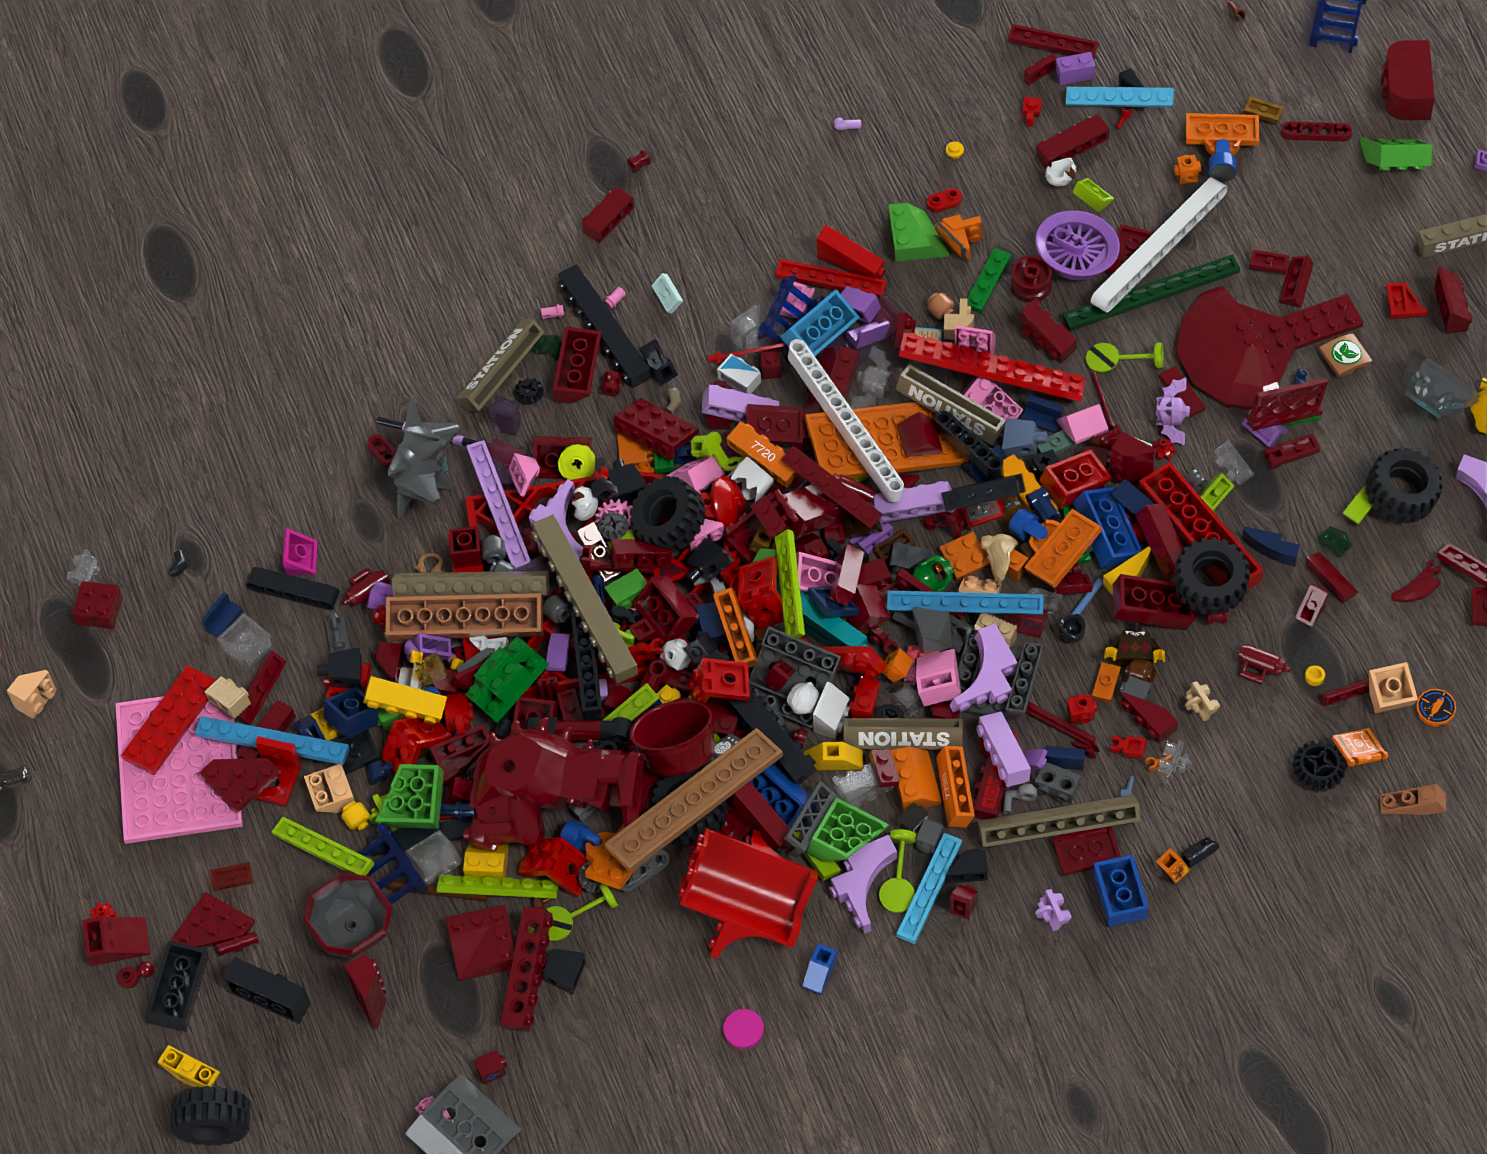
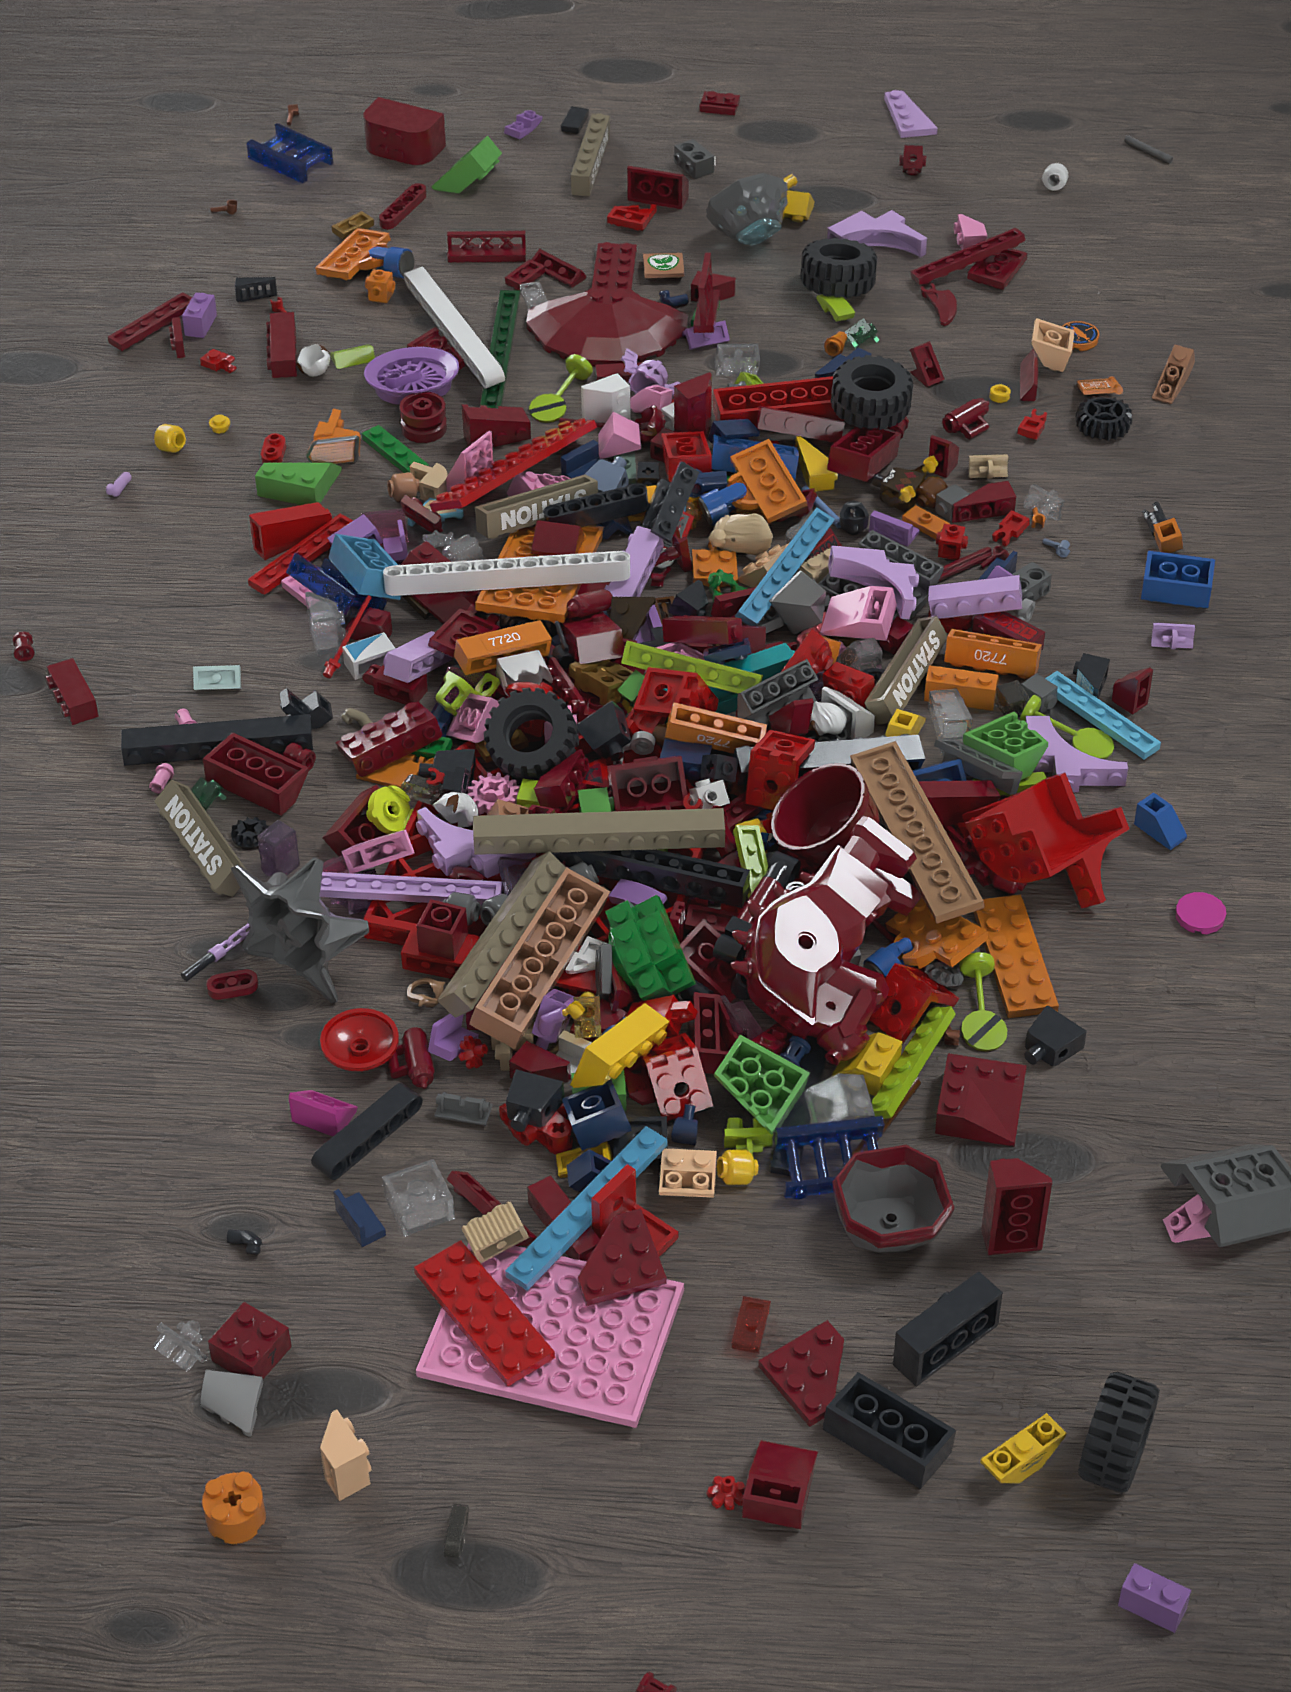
camera: 70 degrees left, 15 degrees down
(58, 616) = (232, 1398): none -> light grey slope
(145, 970) = (841, 1464): dark red plate -> none
(237, 943) = (853, 1348): dark red pin -> none
(322, 847) = (770, 1207): lime plate -> none
(360, 537) = (359, 1039): none -> red dish
(490, 1066) = (1153, 1145): dark red brick -> none
(522, 959) = (1049, 1073): dark red brick -> none
(607, 531) = (517, 793): dark grey gear -> none
(634, 920) = (1017, 957): none -> orange plate
(771, 517) = (596, 651): dark red brick -> none
(832, 487) = (585, 605): dark red plate -> none
(884, 768) = (952, 689): dark red plate -> none
(914, 127) = (169, 438): none -> yellow head
(1059, 820) = (1073, 597): dark tan brick -> none
(1082, 849) = (1114, 592): dark red plate -> none
(1085, 662) = (893, 528): none -> medium lavender panel
(1120, 96) = (261, 296): medium azure plate -> none
(1120, 394) = (604, 397): none -> white slope
(1142, 425) = (651, 396): none -> bright pink slope
(1191, 662) = (946, 455): none -> dark red slope
(1243, 281) = (533, 294): none -> clear plate
(1277, 715) = (1032, 426): none -> red plate
(1289, 218) = (486, 251): none -> dark red fence
(1292, 451) = (745, 325): dark red plate -> none
(1308, 526) = (835, 344): none -> orange cone
(1330, 577) = (895, 352): dark red slope -> none
(1333, 404) = (725, 283): none -> dark red slope

